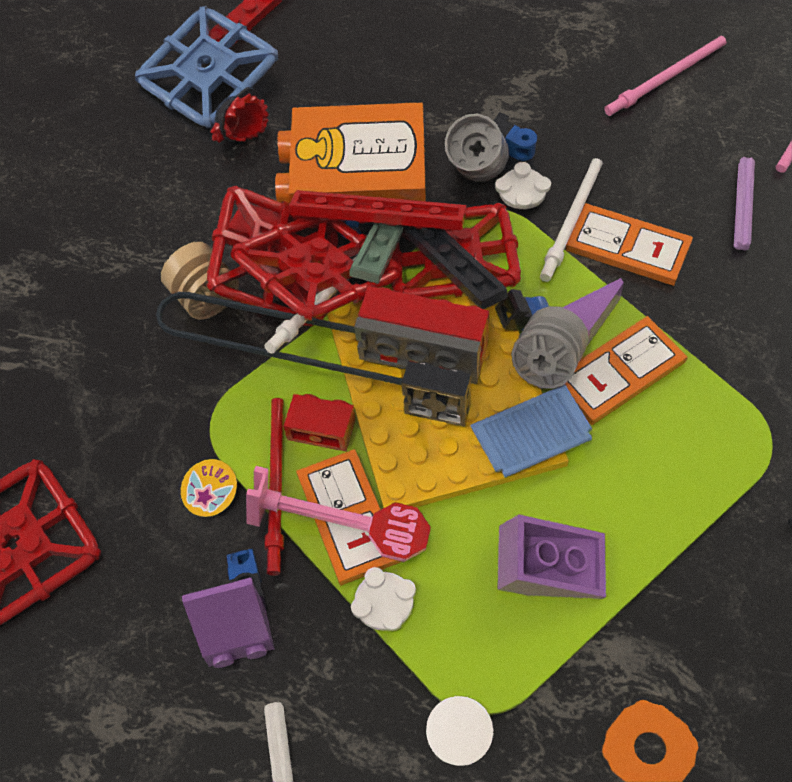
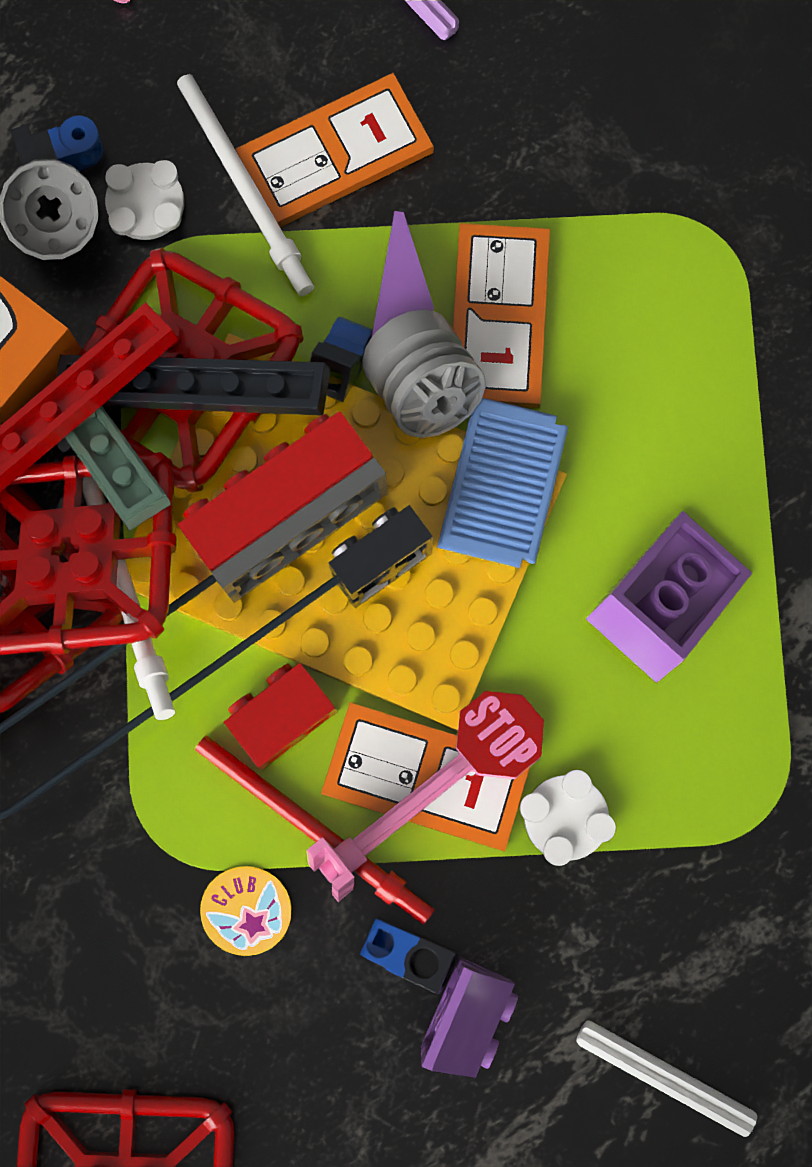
camera: 55 degrees left, 20 degrees up
(459, 730) = (768, 849): white sticker -> none

